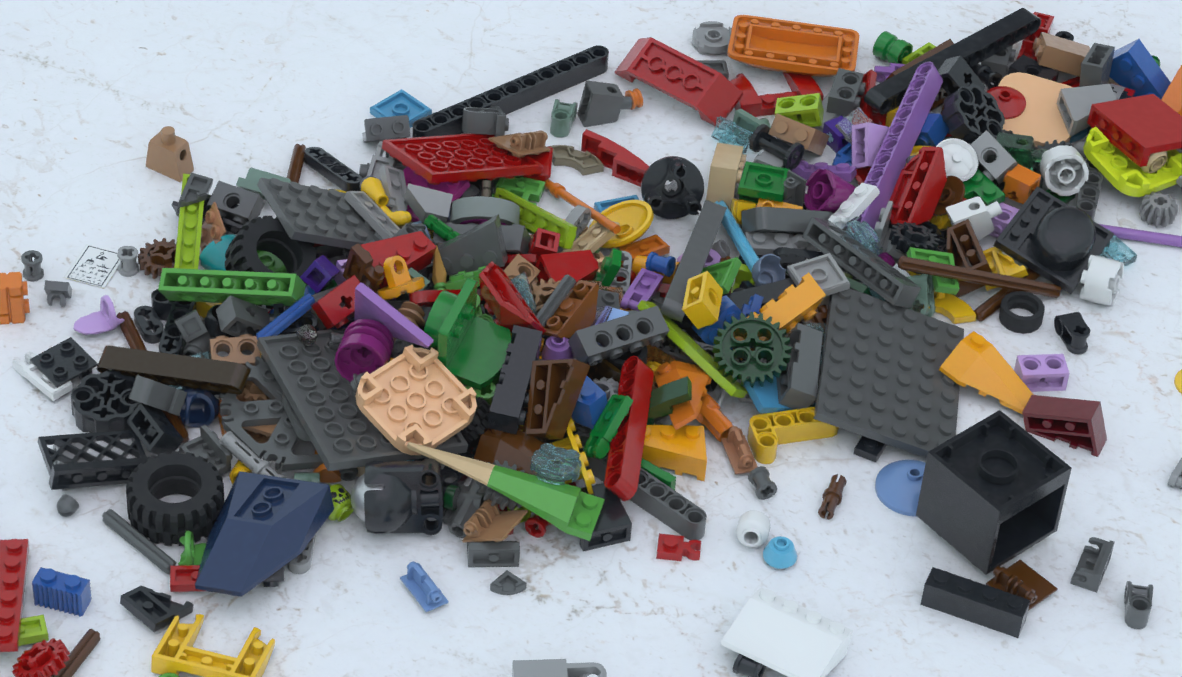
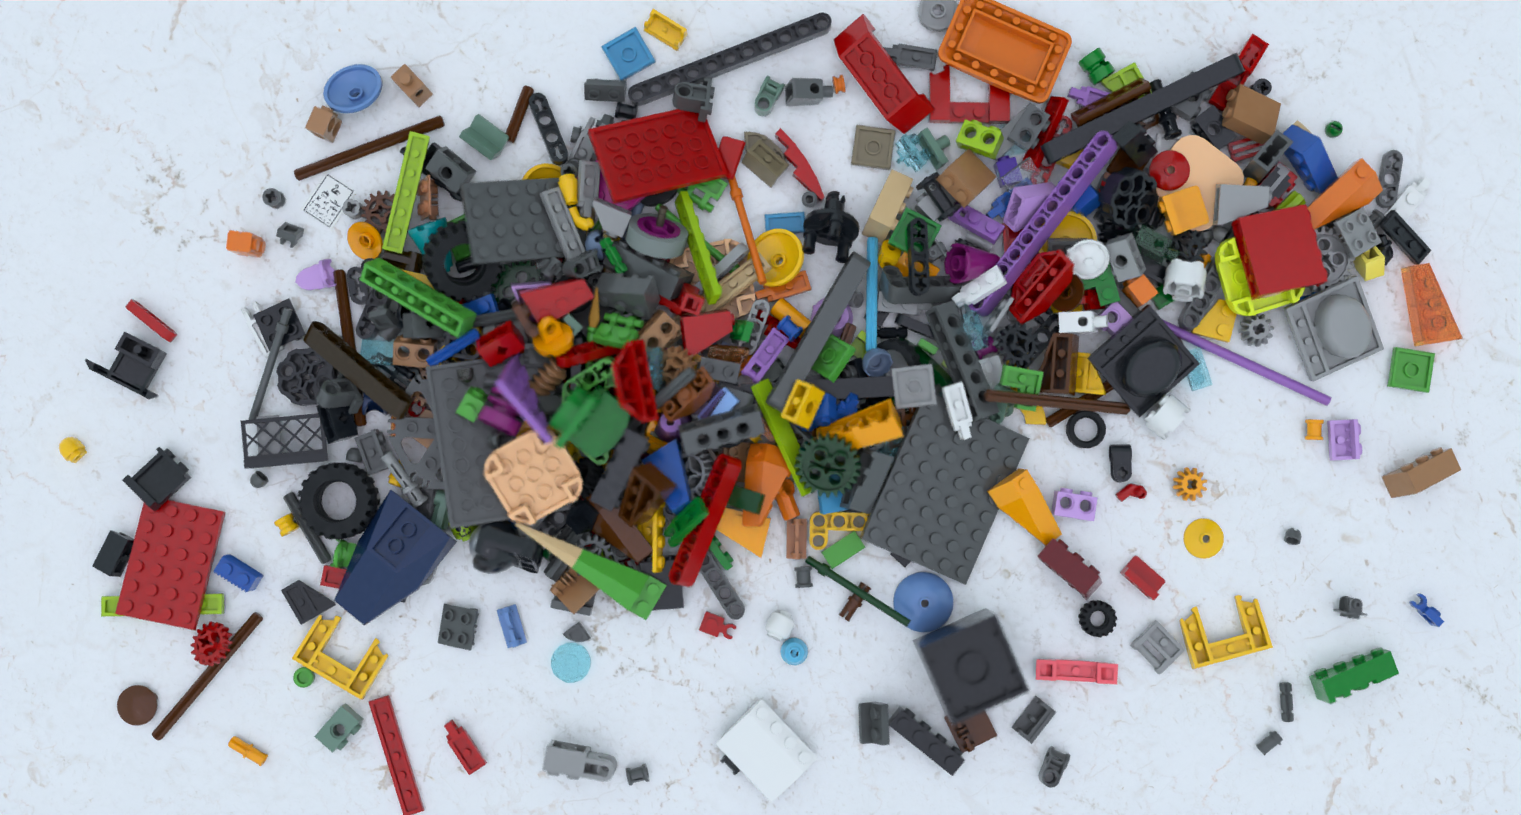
camera: 15 degrees right, 45 degrees up
(70, 355) = (281, 328): none -> dark grey bar
(79, 194) = (324, 123): none -> medium nougat brick
(106, 168) = (352, 88): none -> medium blue dish
(112, 538) = (286, 524): none -> yellow wheel
(116, 222) = (367, 148): none -> reddish brown axle
(140, 277) = (364, 240): none -> light orange dish
(195, 190) = (416, 155): dark grey tile -> none
(320, 274) = (494, 295): dark purple brick -> none
(322, 357) = (472, 403): none -> bright green bracket
(357, 598) = (458, 626): none -> dark grey hinge
(435, 84) = (665, 30): none -> yellow hinge
(482, 448) = (581, 517): none -> black panel
(509, 613) = (570, 662): none -> clear light blue tile
(522, 144) = (715, 138): medium nougat hinge -> none
(566, 461) = (633, 568): clear light blue plate -> none
(578, 164) = (764, 163): none -> dark tan panel
(636, 176) = (809, 194): none -> dark grey pin
(689, 140) = (873, 147): none -> dark tan tile
(776, 186) = (914, 256): none -> black beam
(784, 473) = (824, 570): none -> dark green bar
(798, 455) = (843, 549): none -> bright green tile
(875, 290) = (958, 409): none -> white hinge
(907, 595) = (873, 723): none -> dark grey bracket
(1032, 122) = (1183, 210): none -> light orange bracket
(1098, 354) = (1131, 490): none -> red arm
(1114, 472) = (1106, 627): none -> black tyre
(1116, 211) = (1217, 322): none -> yellow wing
(1120, 515) = (1076, 671): none -> coral slope
(1148, 424) = (1143, 577): none -> red panel
(1157, 335) = (1196, 484): none -> light orange gear

